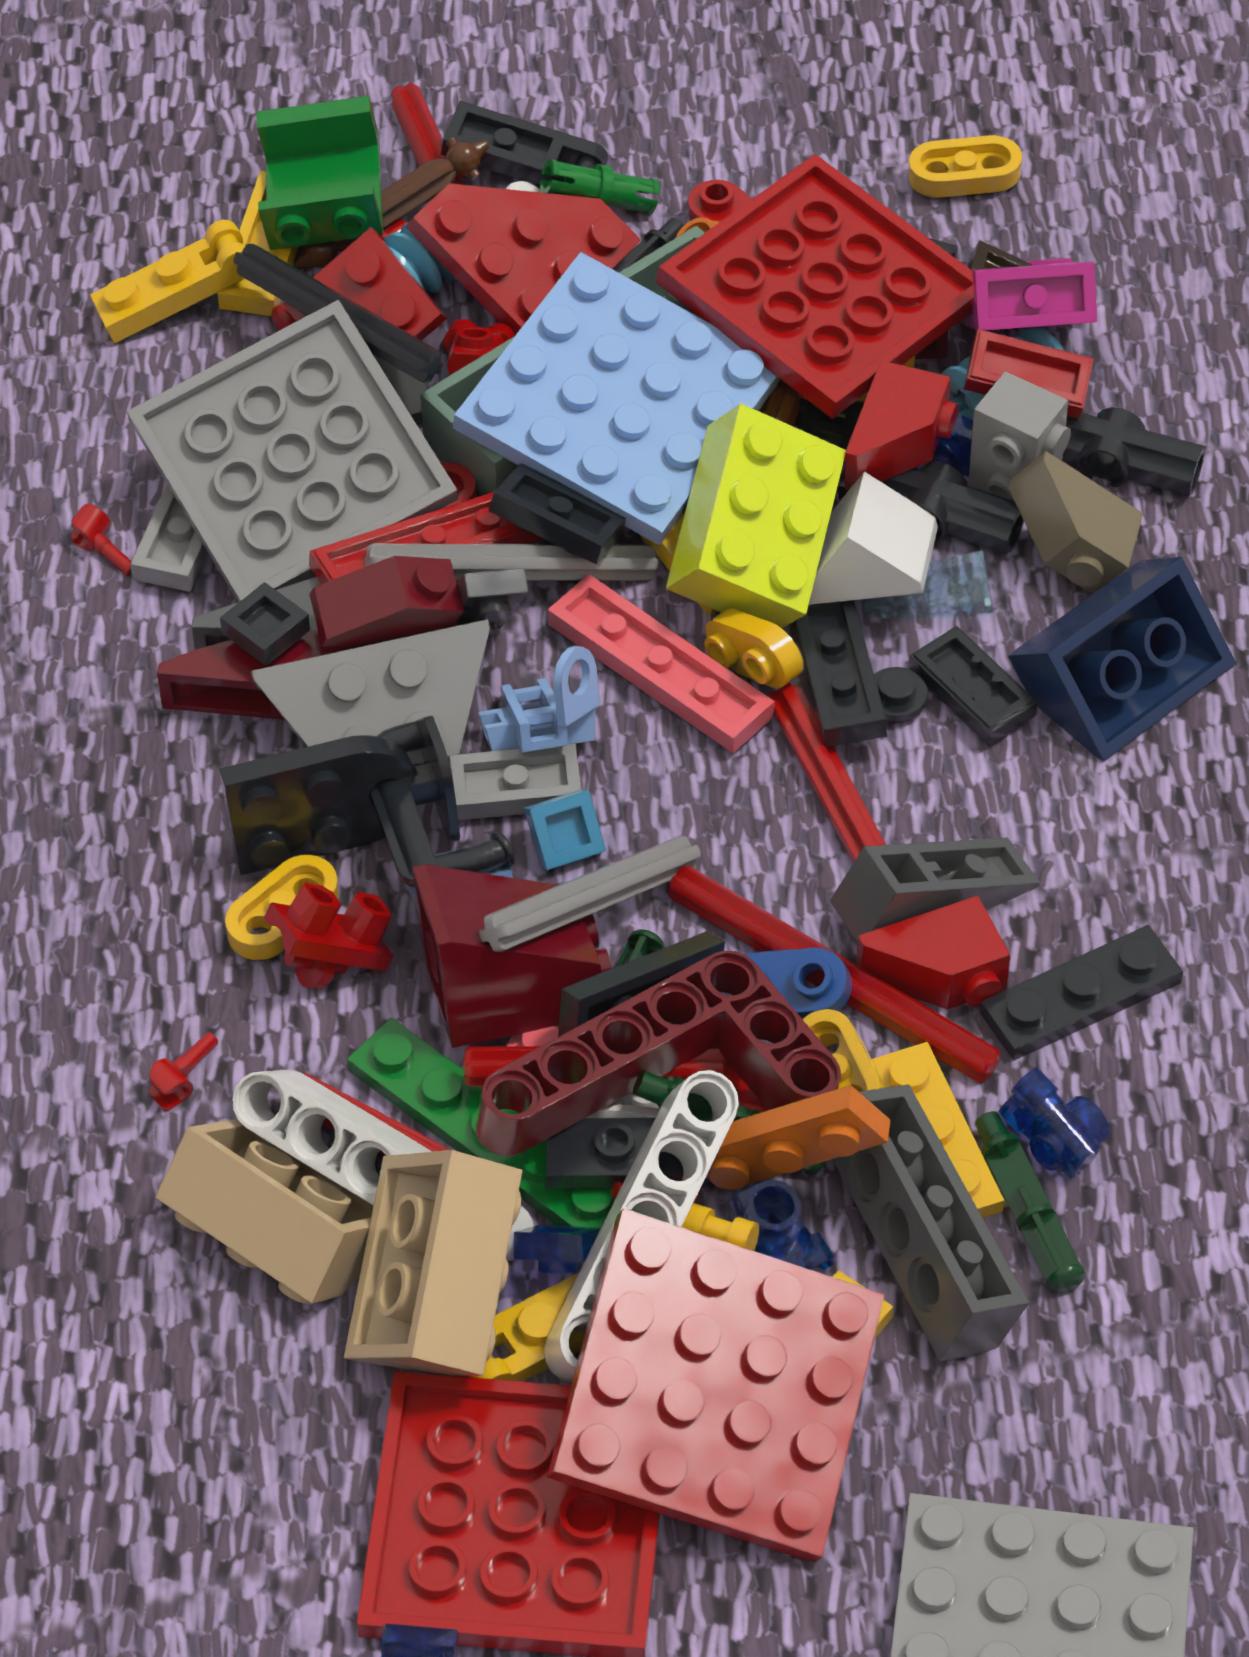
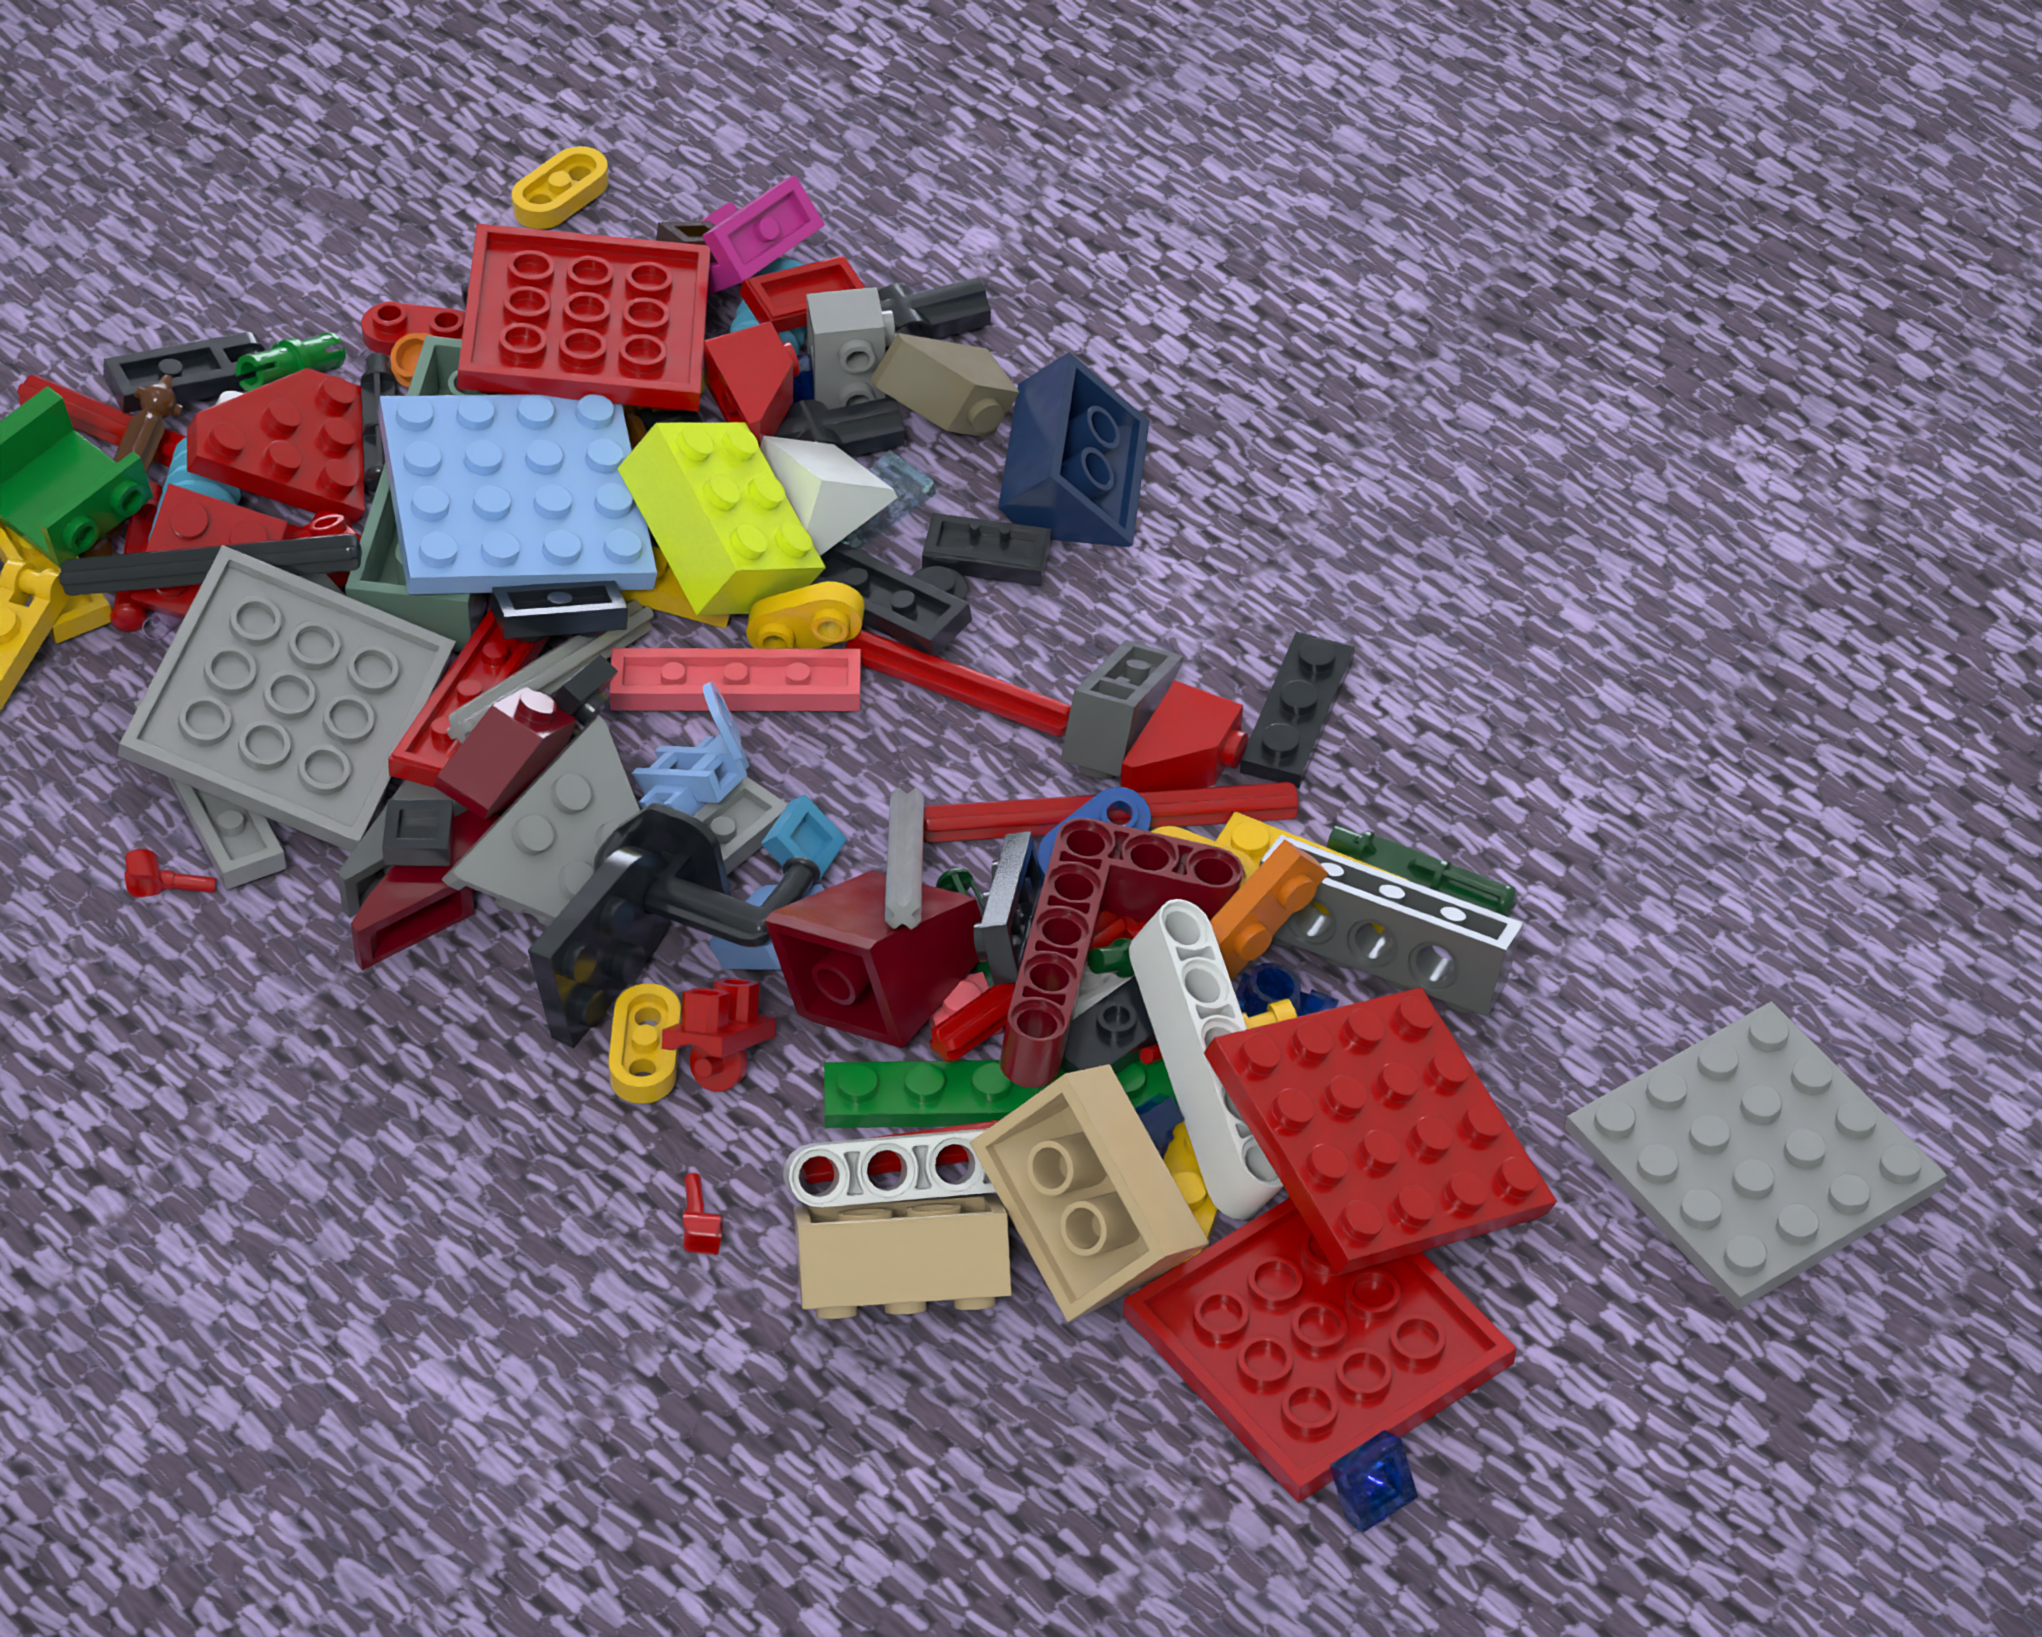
camera: 45 degrees left, 5 degrees down
(1058, 1131) = (1387, 804): clear blue plate -> none

